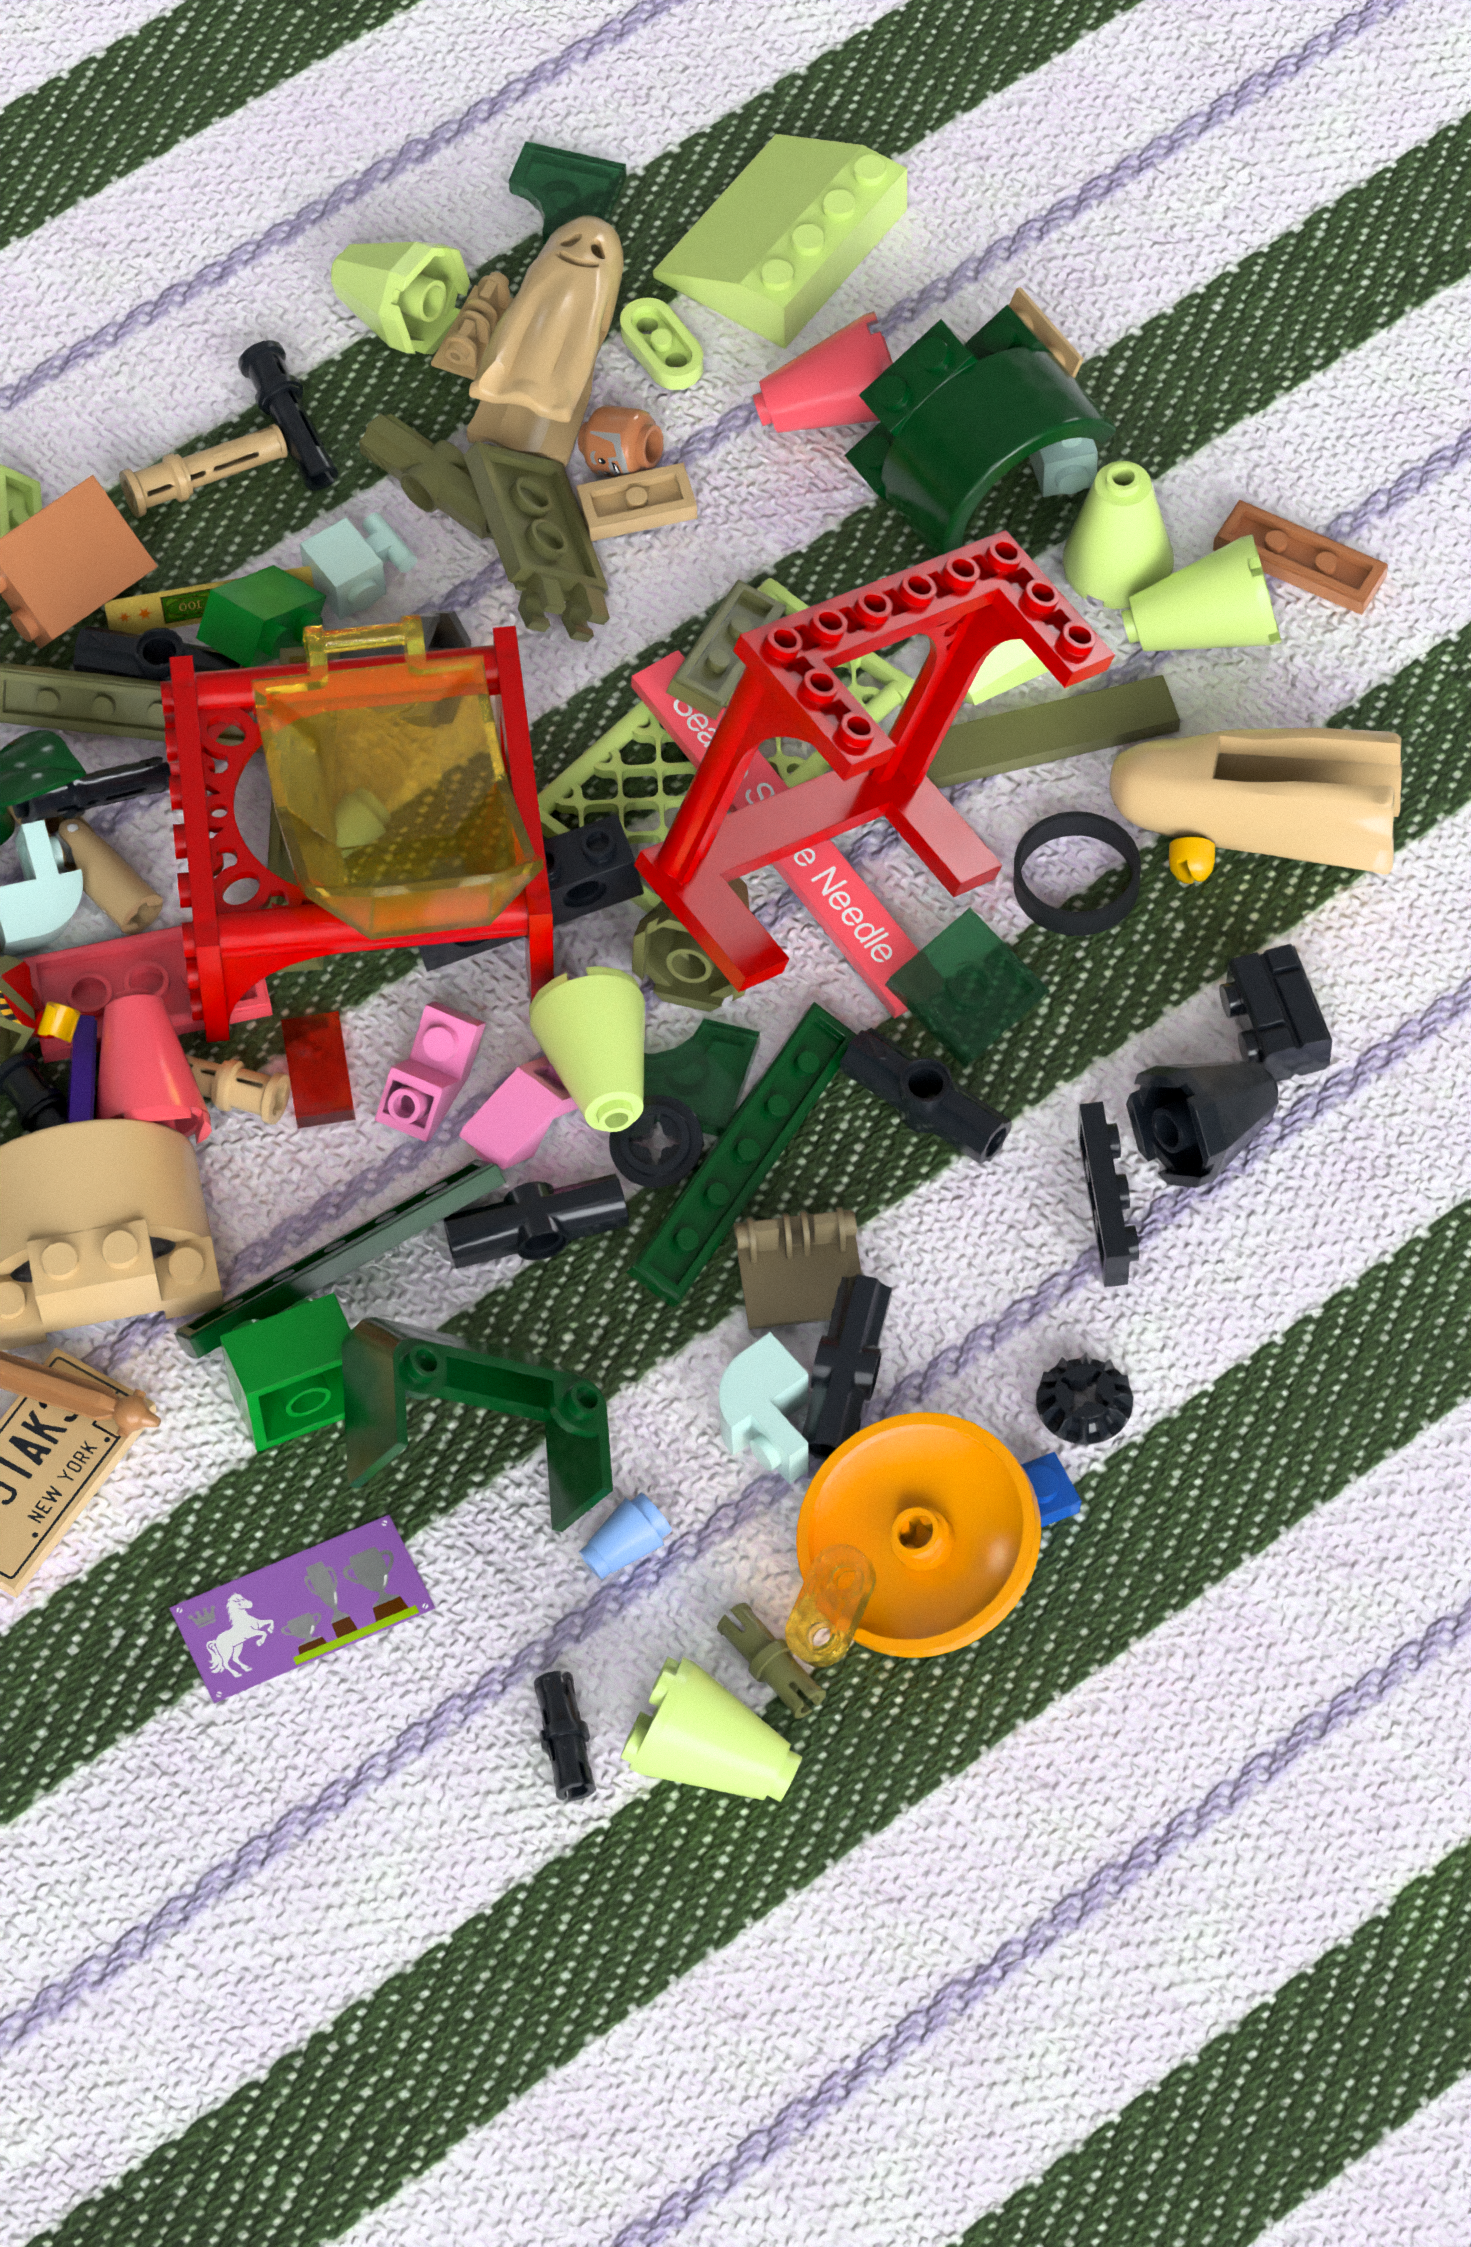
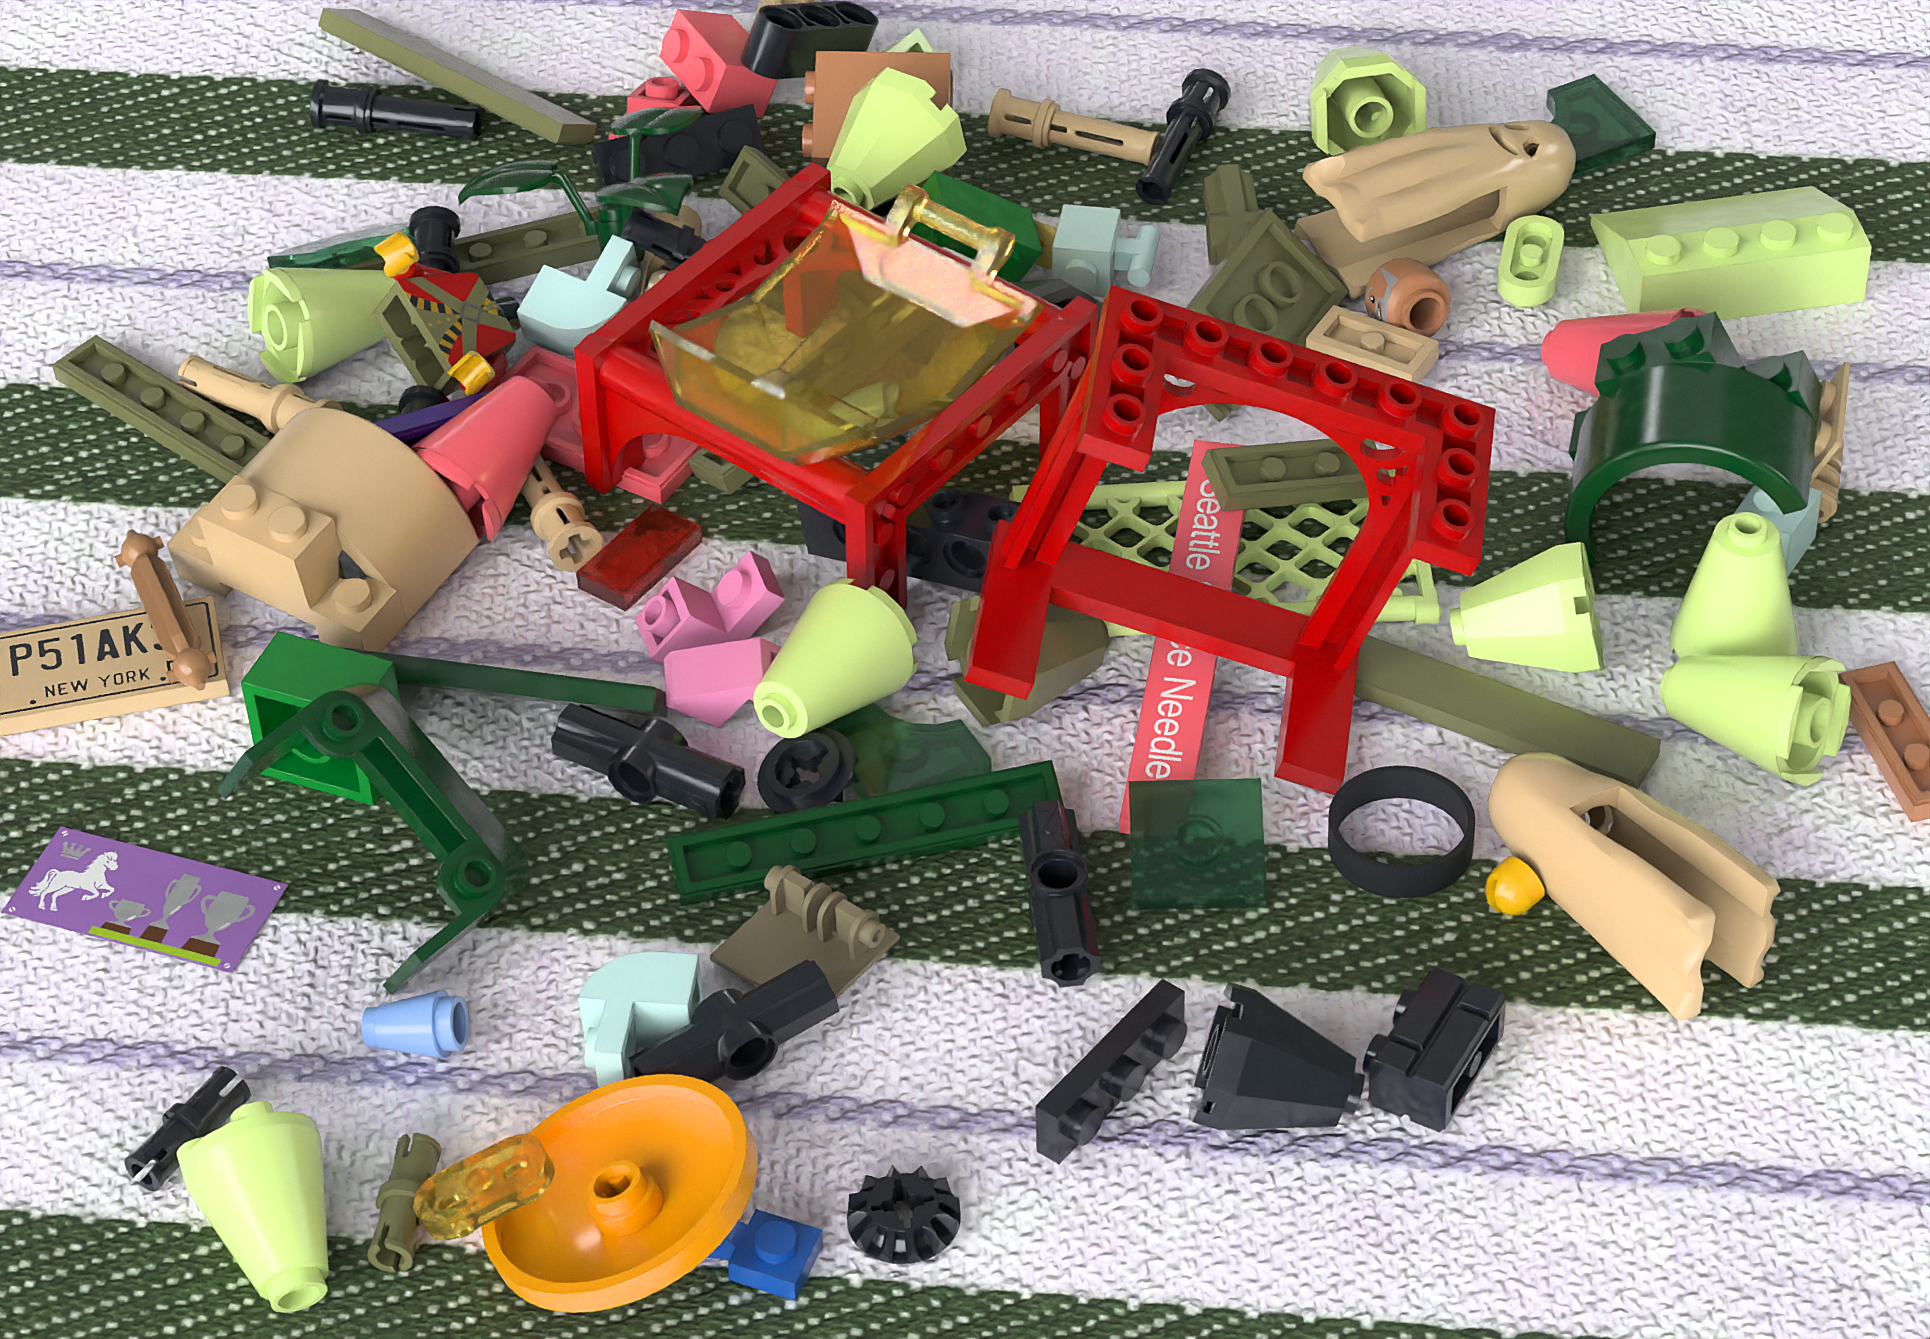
camera: 45 degrees right, 15 degrees down
(143, 588) = (892, 140): none -> yellowish green cone

